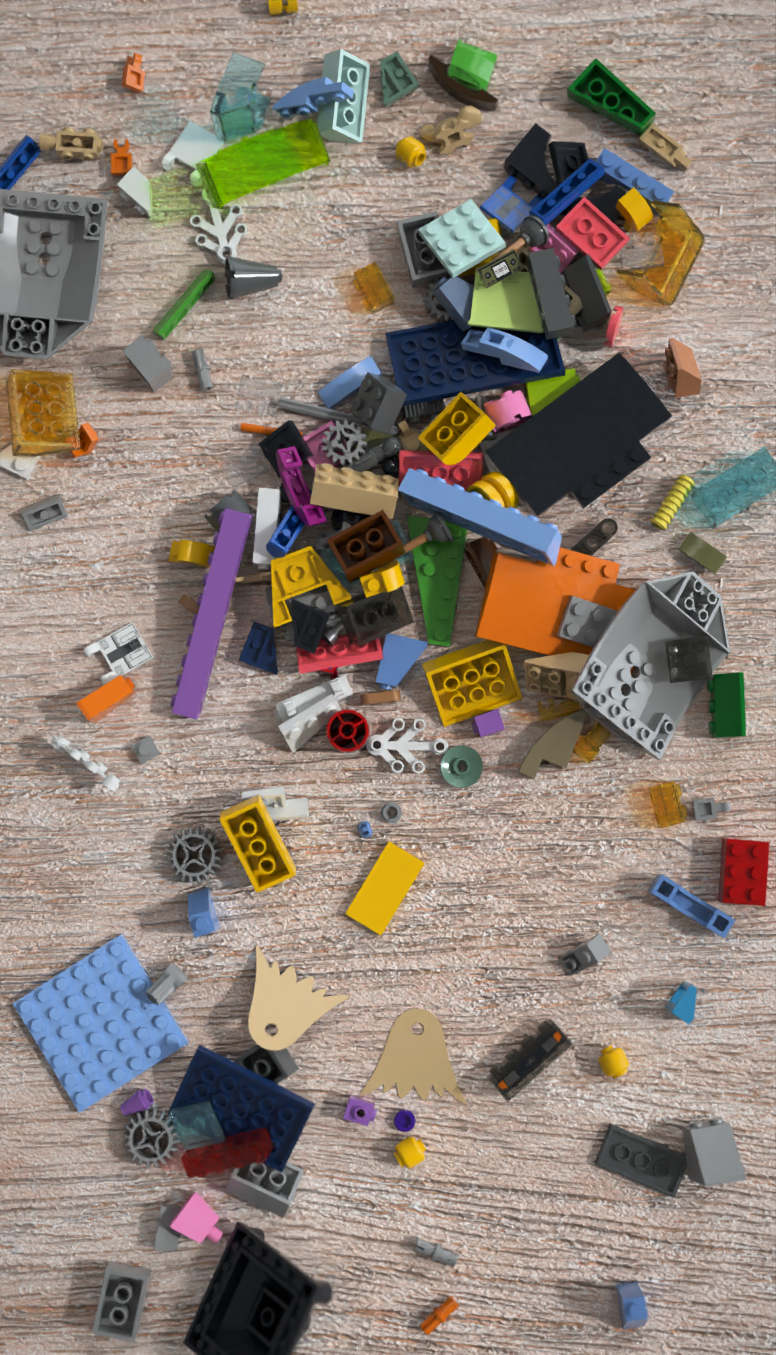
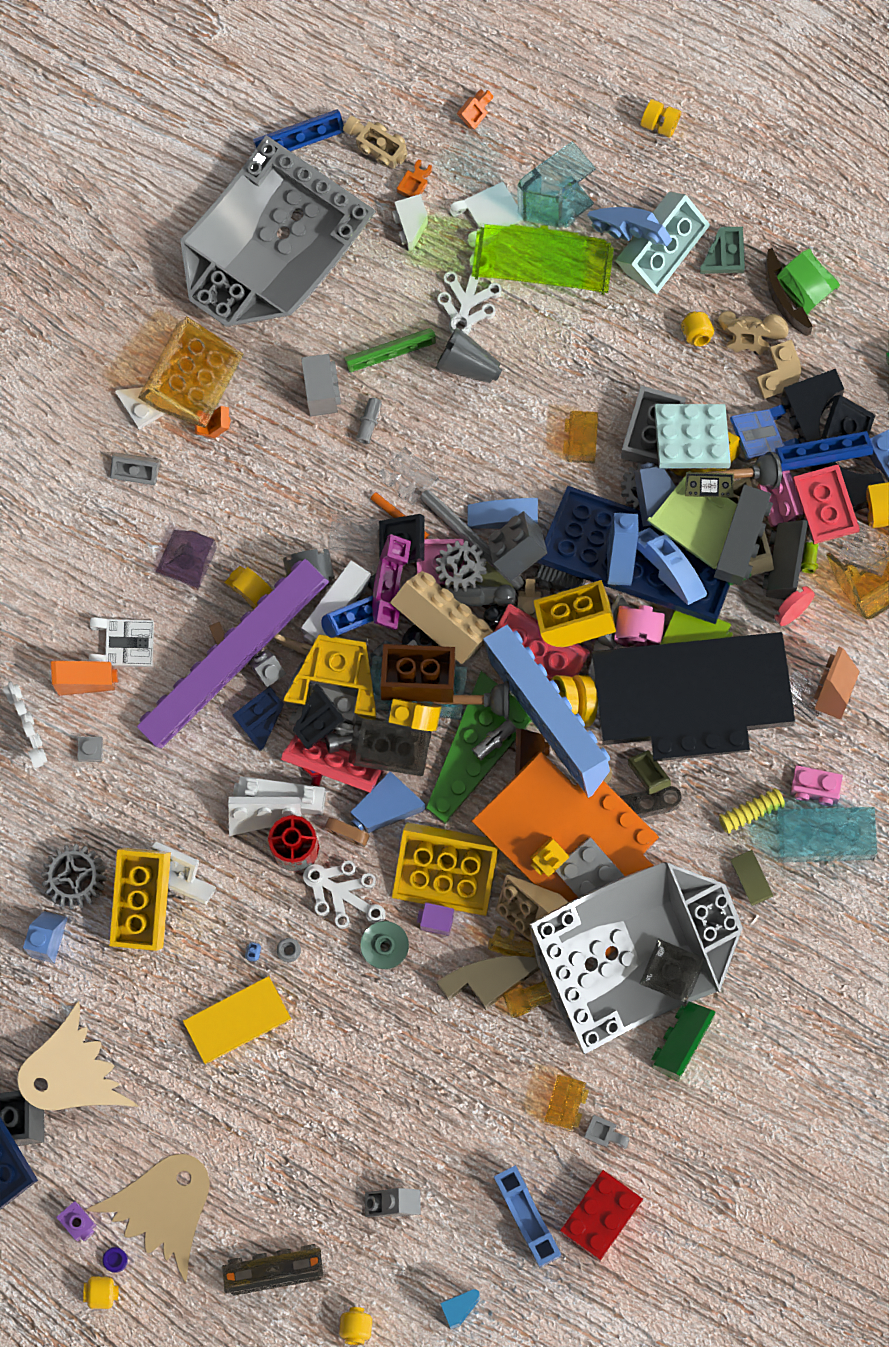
camera: 35 degrees right, 10 degrees down
(127, 558) = (187, 557): none -> clear purple slope
(243, 608) = (266, 667): none -> light grey brick
(454, 548) = (494, 739): none -> light grey pin
(463, 357) = (622, 548): none -> medium blue slope
(498, 147) = (787, 371): none -> tan plate
(551, 629) = (548, 857): none -> yellow brick
(580, 518) = (649, 772): none -> olive tile
(707, 454) = (816, 785): none -> bright pink bracket

